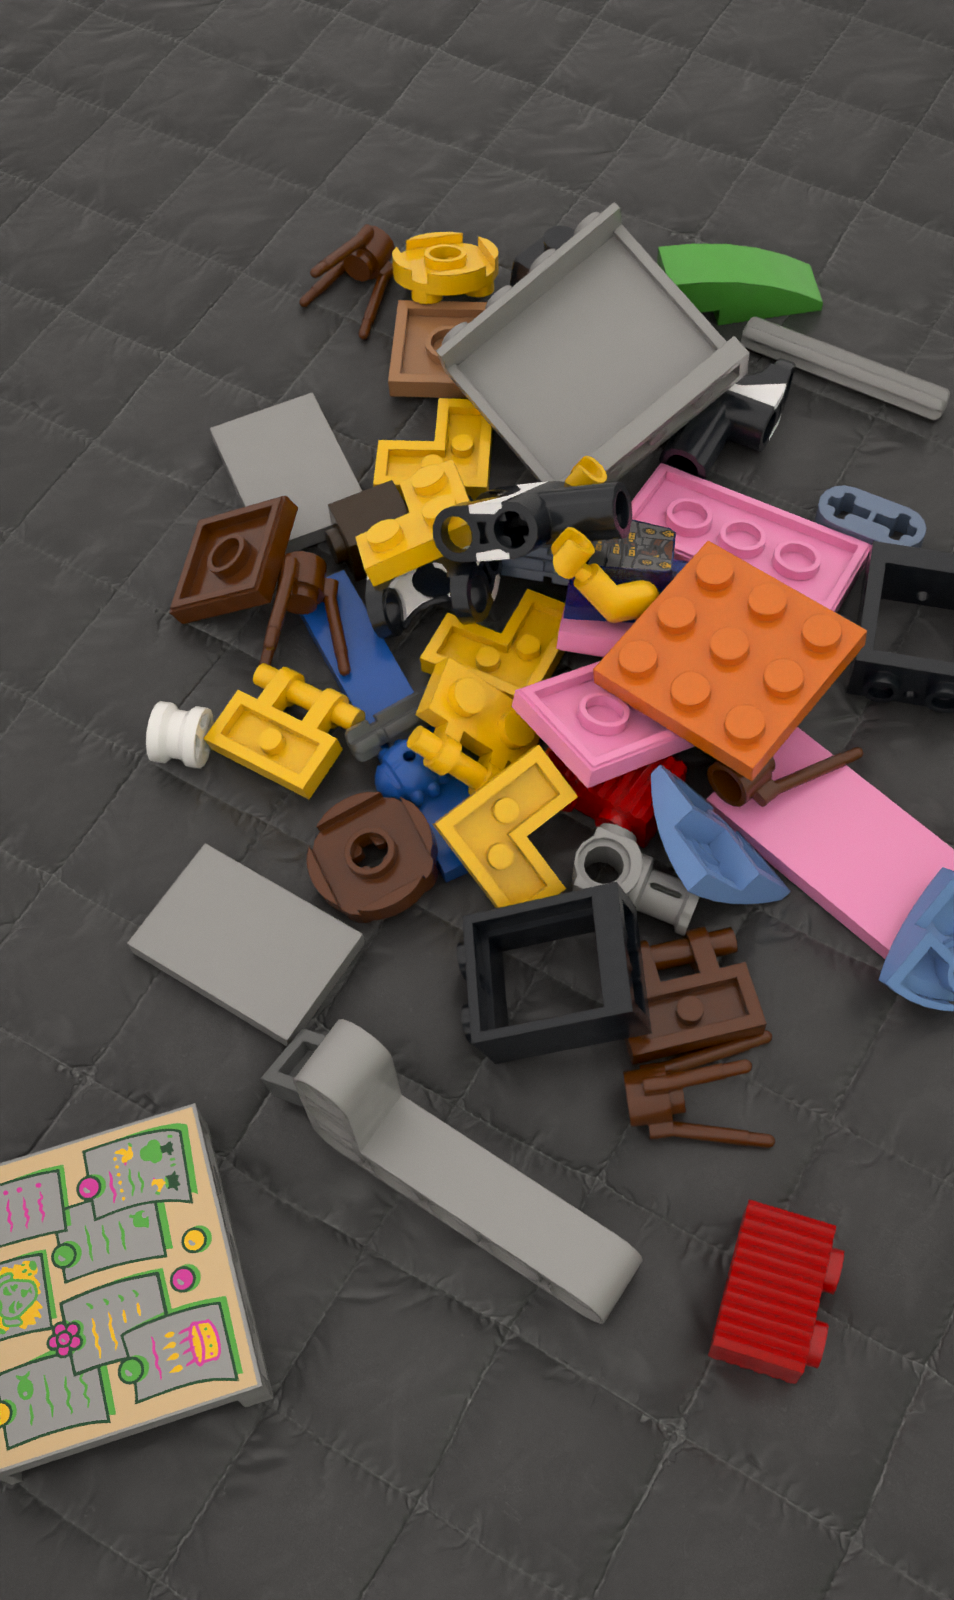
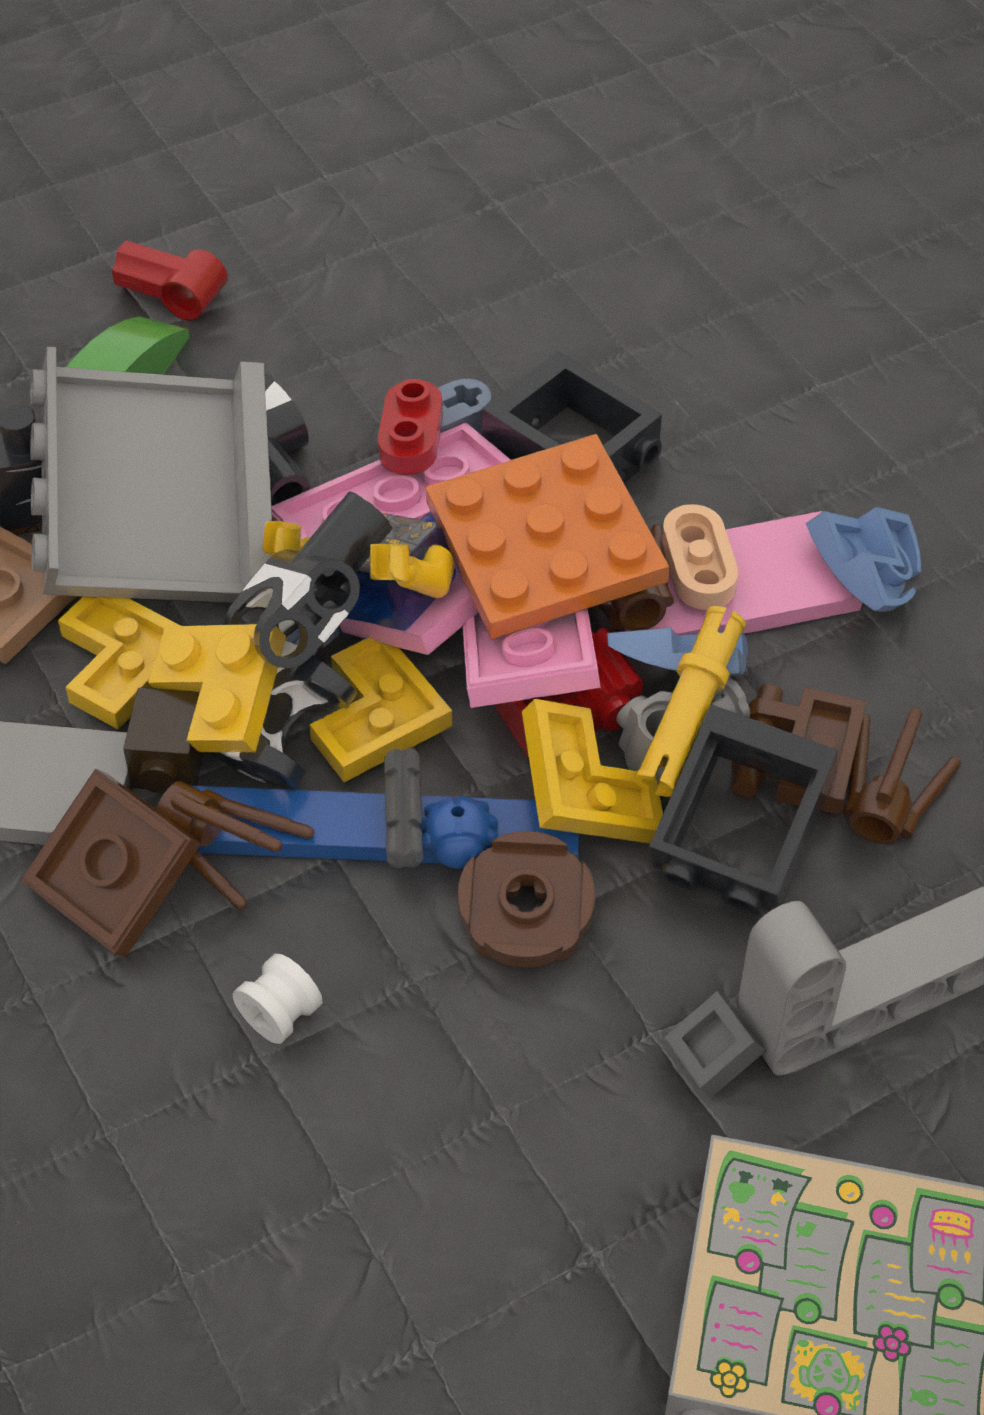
camera: 65 degrees left, 10 degrees down
(247, 944) = (541, 1050): light grey tile -> none
(276, 743) = (345, 923): yellow plate -> none
(469, 715) = (462, 754): yellow plate -> none
(628, 863) = (700, 677): none -> yellow pin
(825, 503) = (410, 427): none -> red plate
(829, 802) = (705, 568): none -> light nougat plate
(846, 368) = (285, 343): light grey axle -> none
(864, 262) = (181, 283): none -> red piece

